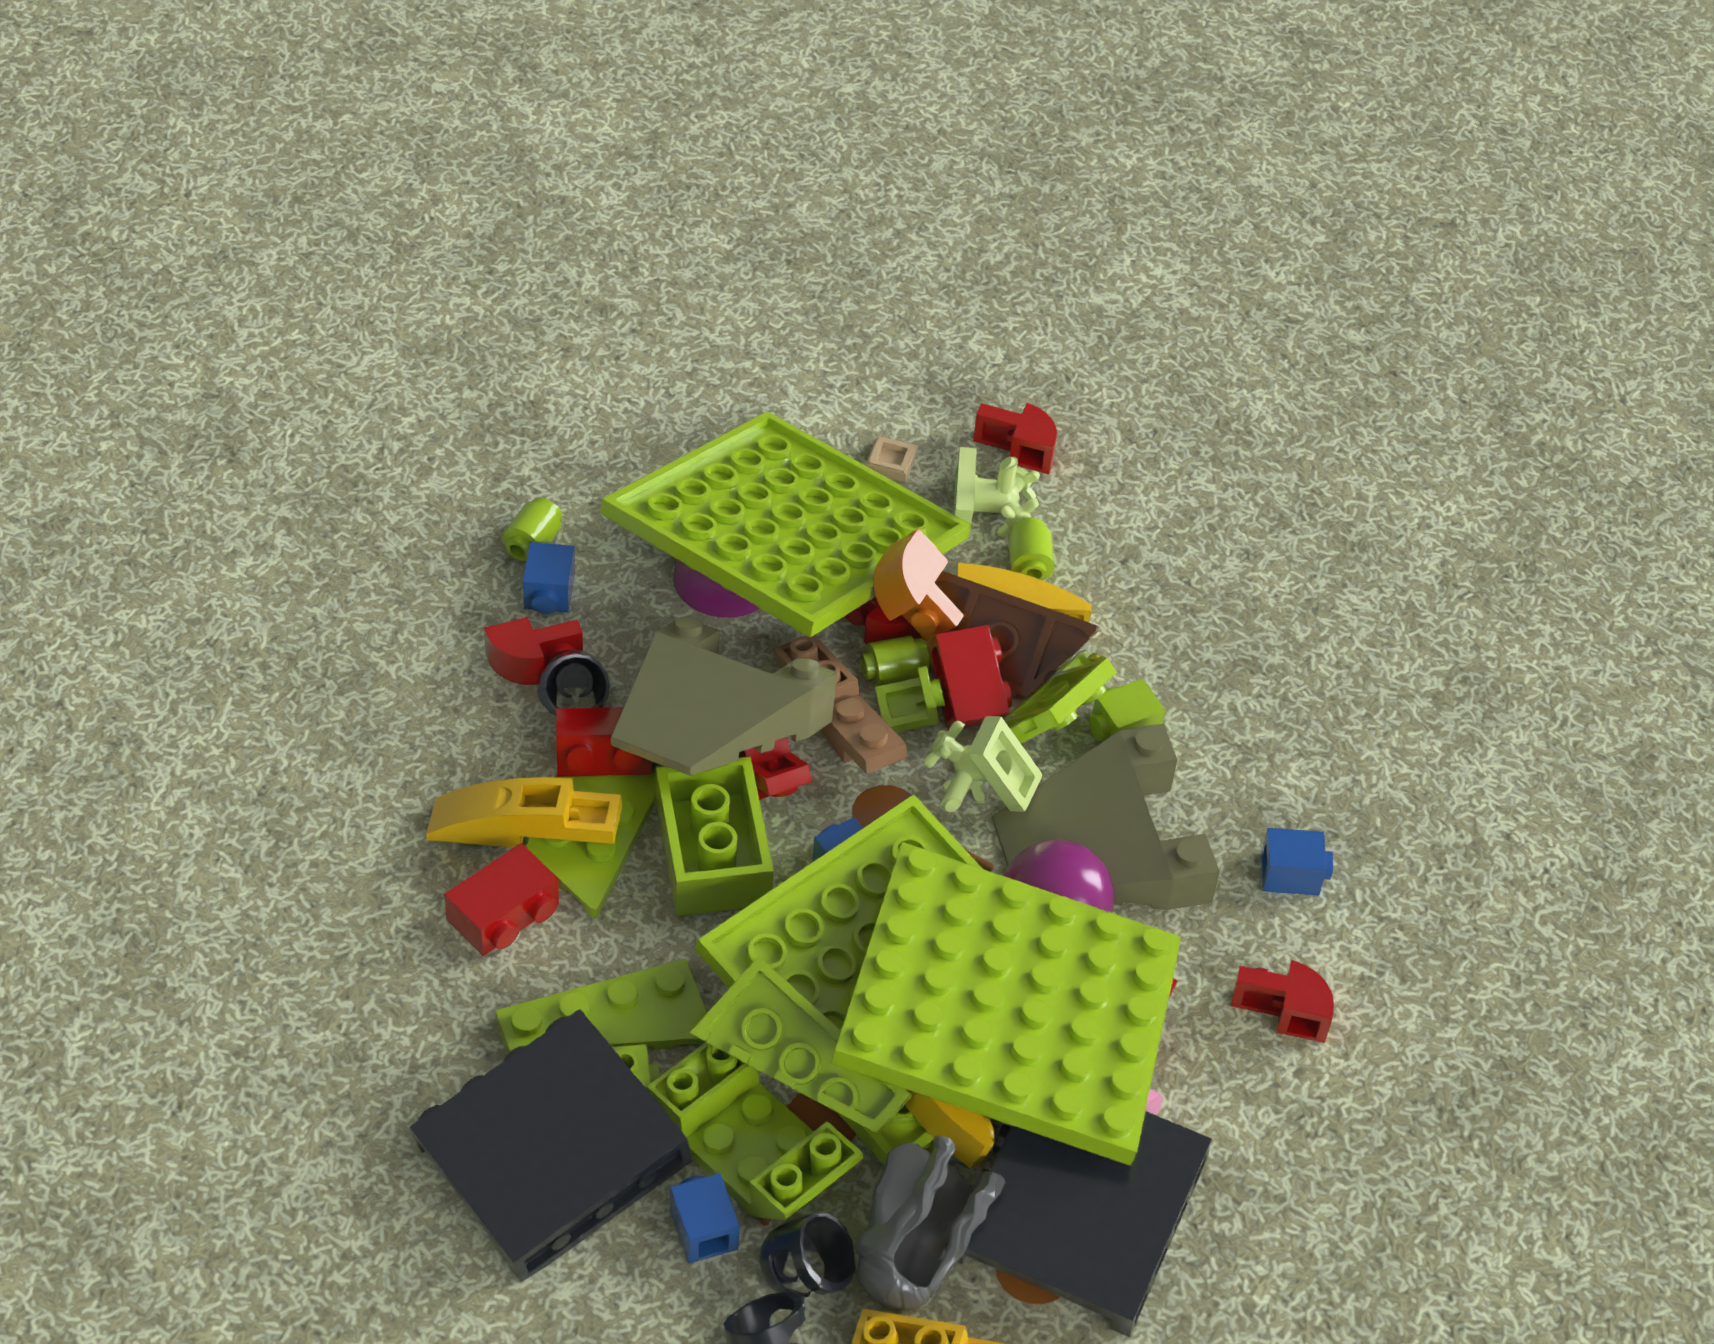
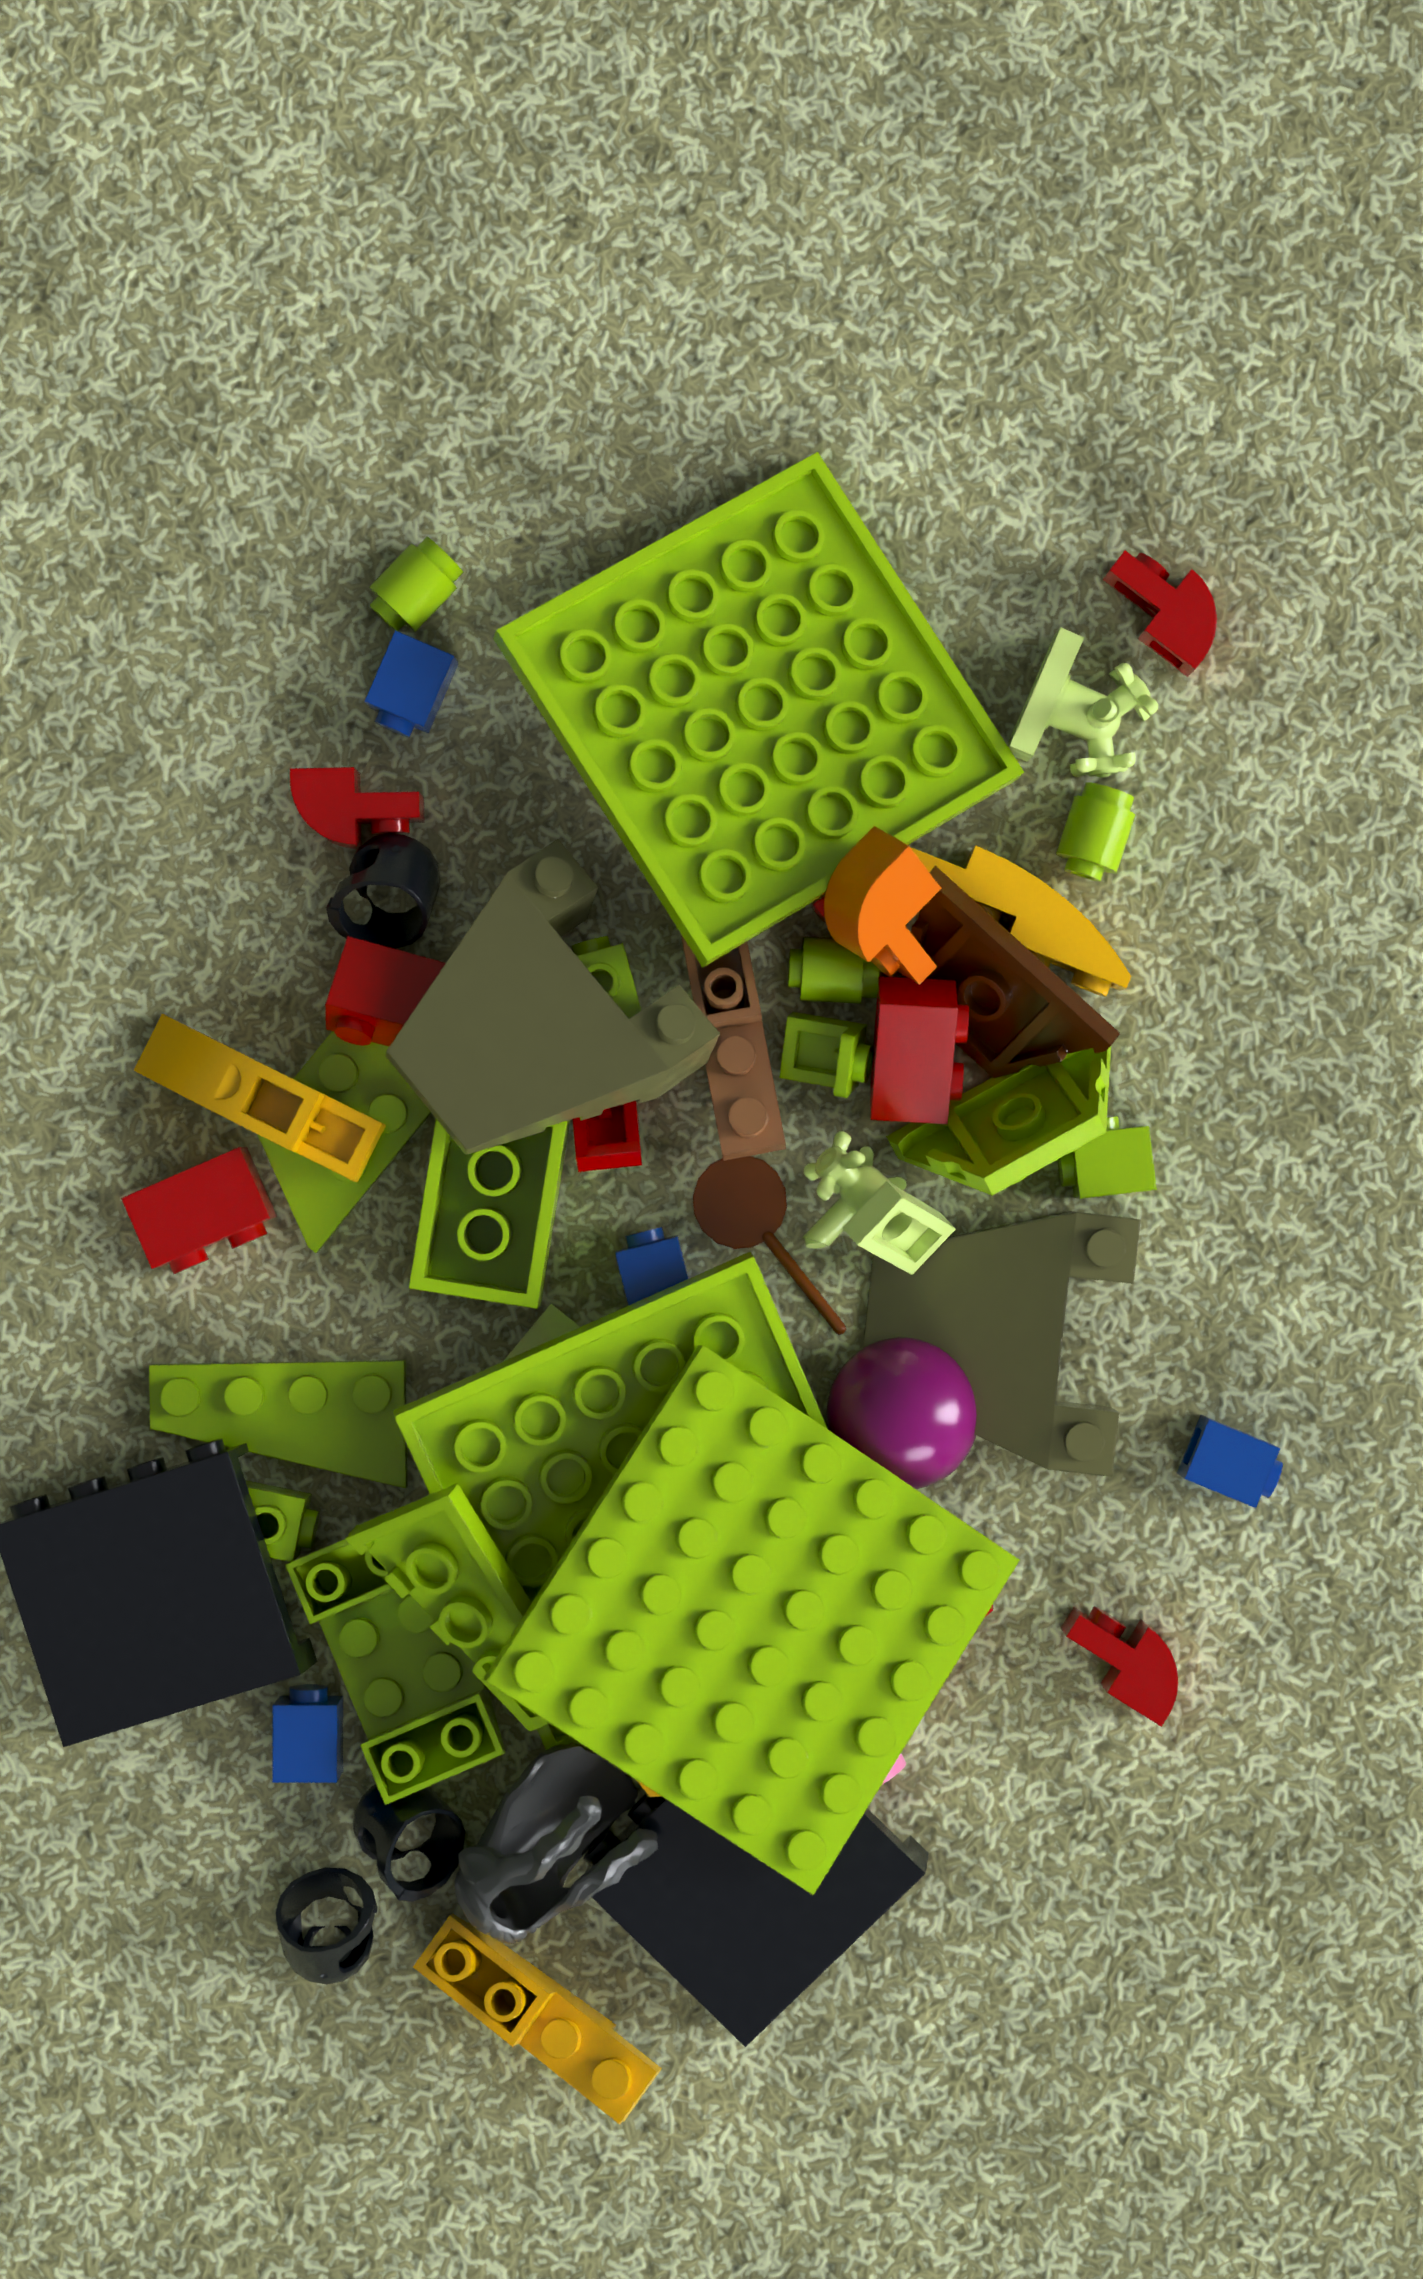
camera: 20 degrees right, 40 degrees up
(892, 458) = (969, 585): tan tile -> none

